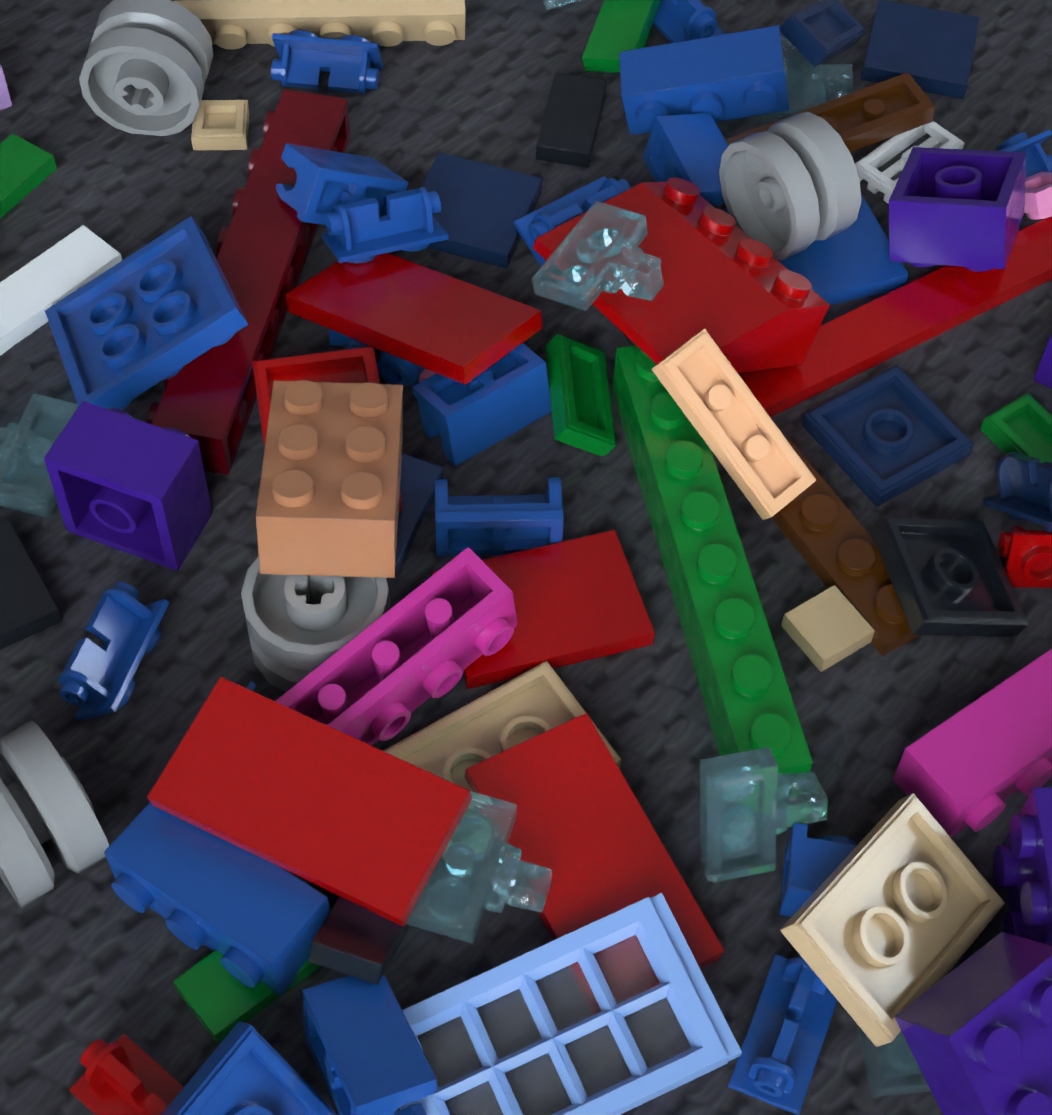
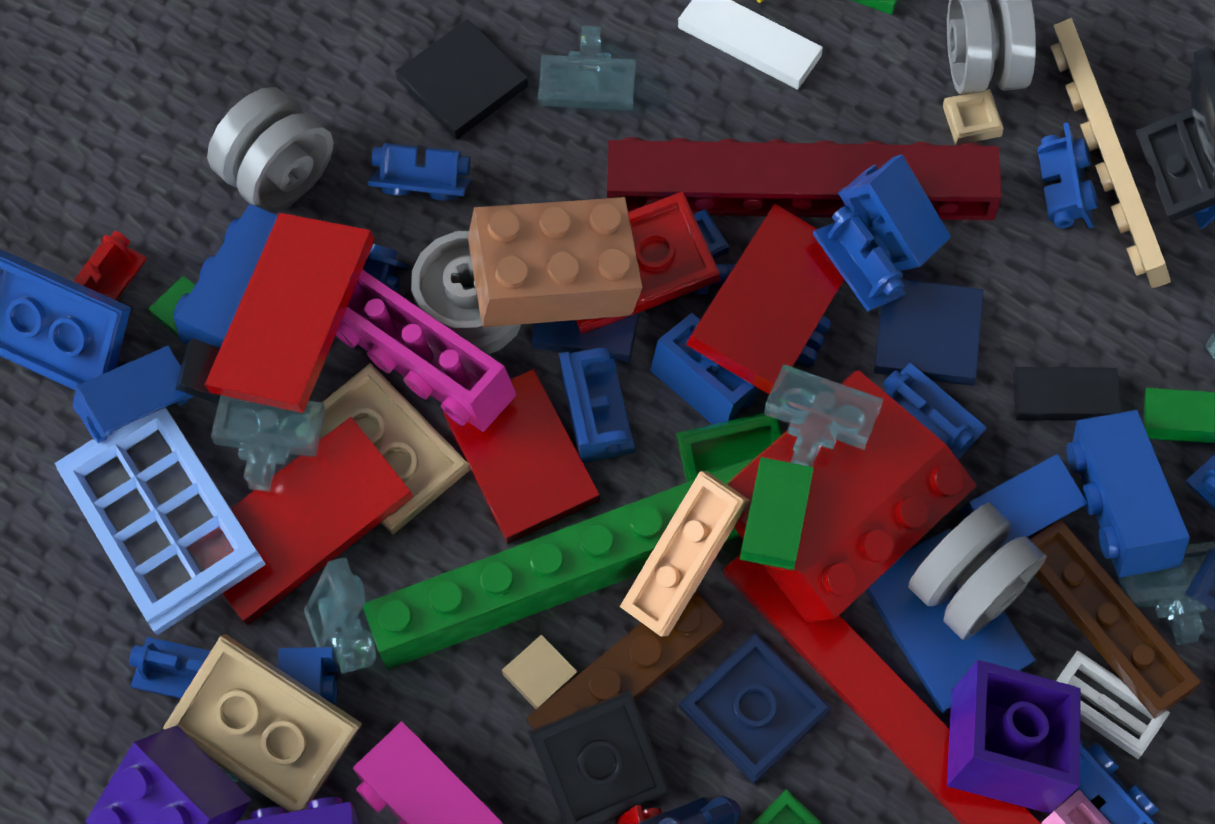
camera: 85 degrees right, 10 degrees up
(130, 484) = (551, 139): dark purple brick -> none
(145, 318) = (711, 108): blue plate -> none
(727, 311) = (776, 513): none -> green tile

